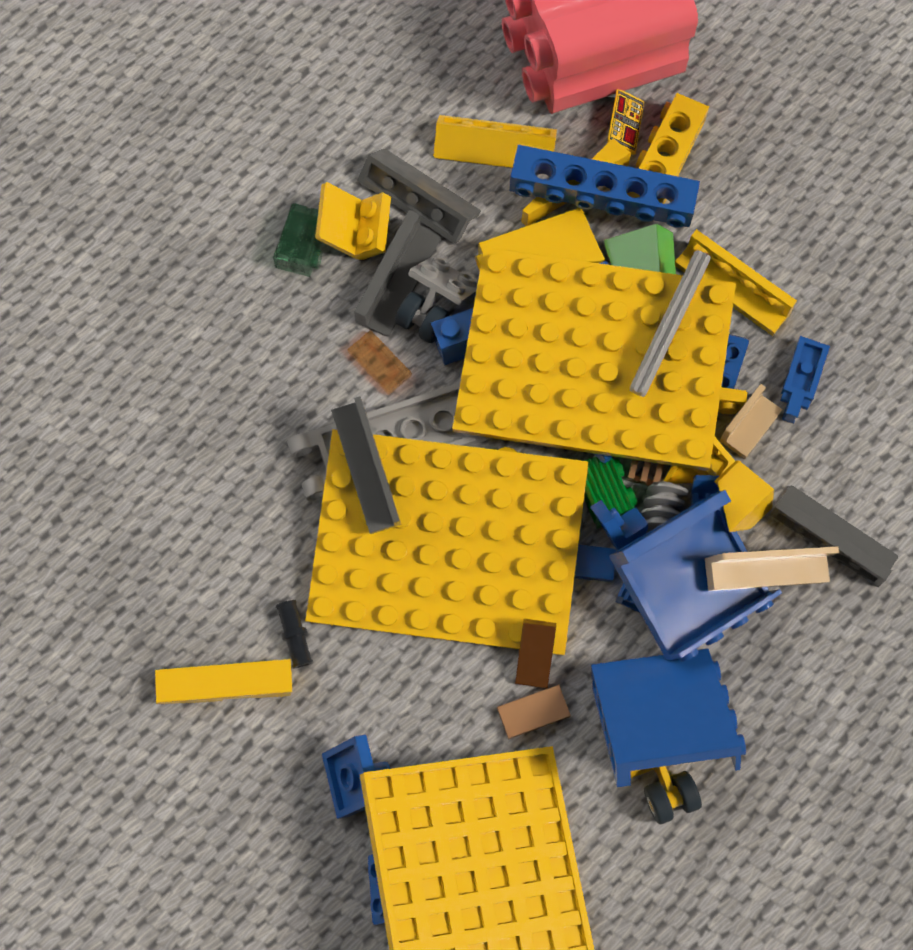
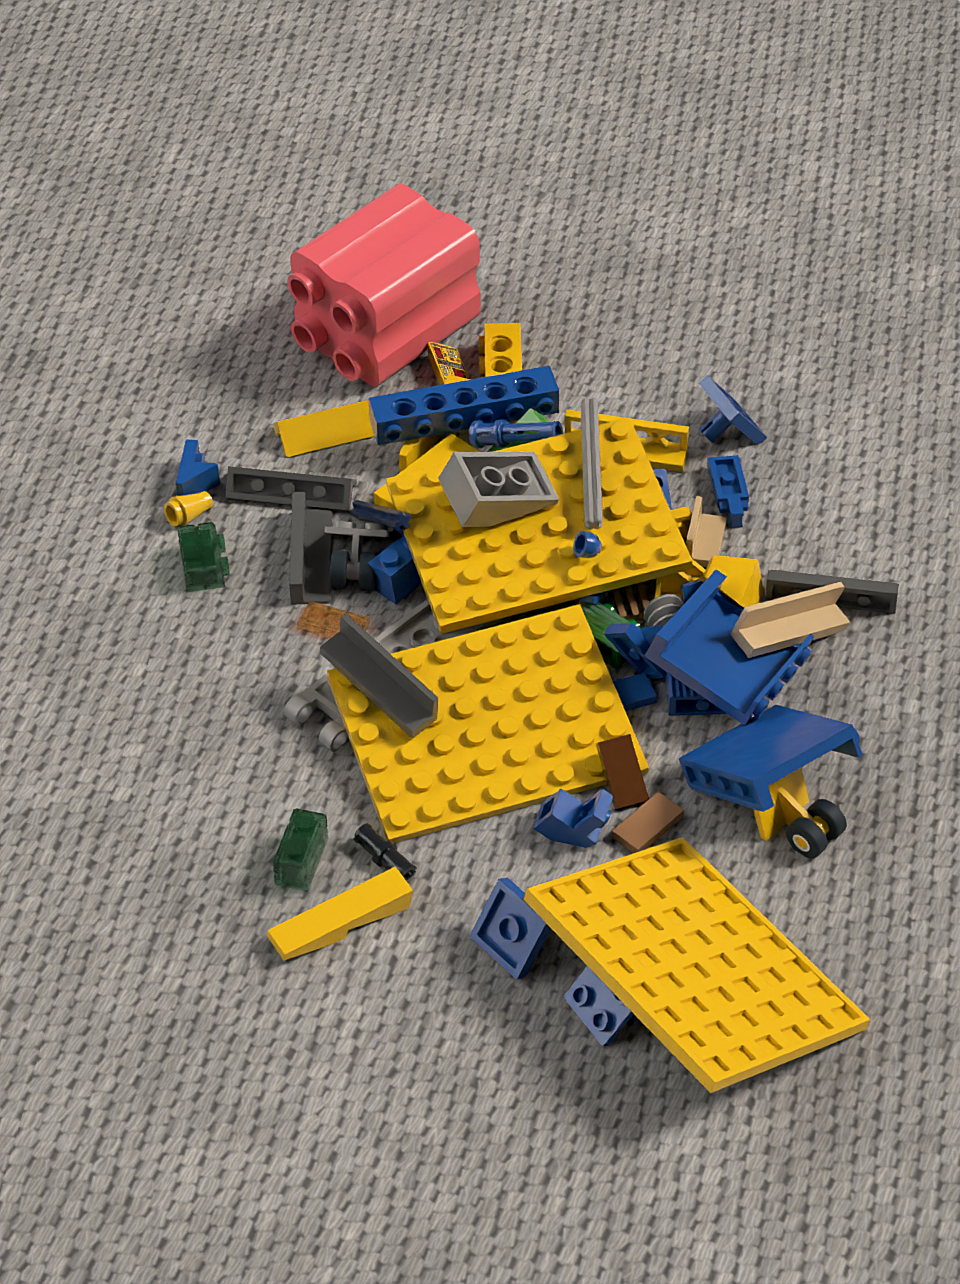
camera: 25 degrees left, 25 degrees down
(224, 599) = (300, 850): none -> clear green brick
(312, 177) = (185, 508): none -> yellow cone
(338, 145) = (195, 474): none -> blue slope
(352, 223) = (253, 528): yellow bracket -> none
(467, 276) = (381, 514): none -> dark blue axle
(467, 681) = (571, 821): none -> blue brick
(570, 312) = (495, 486): none -> light grey slope
(618, 413) = (586, 545): none -> blue hinge
(620, 237) = (504, 433): none -> blue pin
(847, 297) = (729, 413): none -> blue tile

